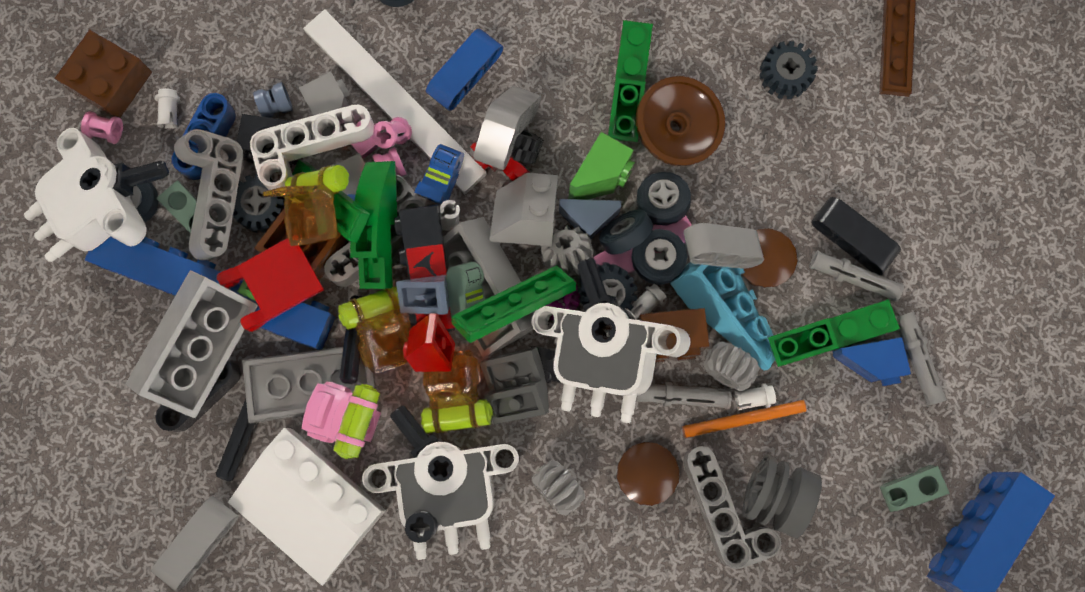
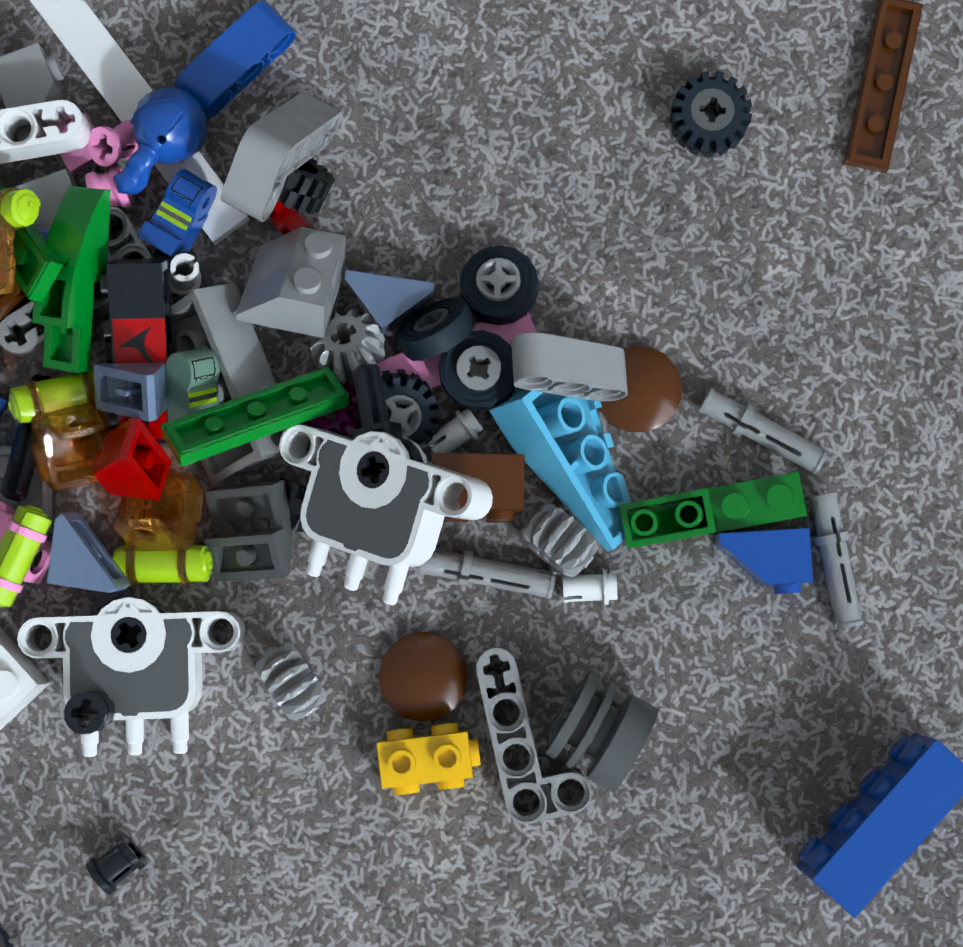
camera: 10 degrees right, 5 degrees up
(401, 418) = (81, 559): none -> sand blue slope
(427, 119) = (167, 130): none -> blue piece
(602, 170) = (410, 235): bright green slope -> none
(629, 79) = (474, 105): green slope -> none
(668, 529) = (427, 758): none -> yellow brick
(692, 108) = (554, 150): reddish brown dish -> none
(744, 418) = (571, 616): orange bar -> none
(856, 235) = (771, 372): black beam -> none
(914, 488) = (794, 743): sand green leg -> none

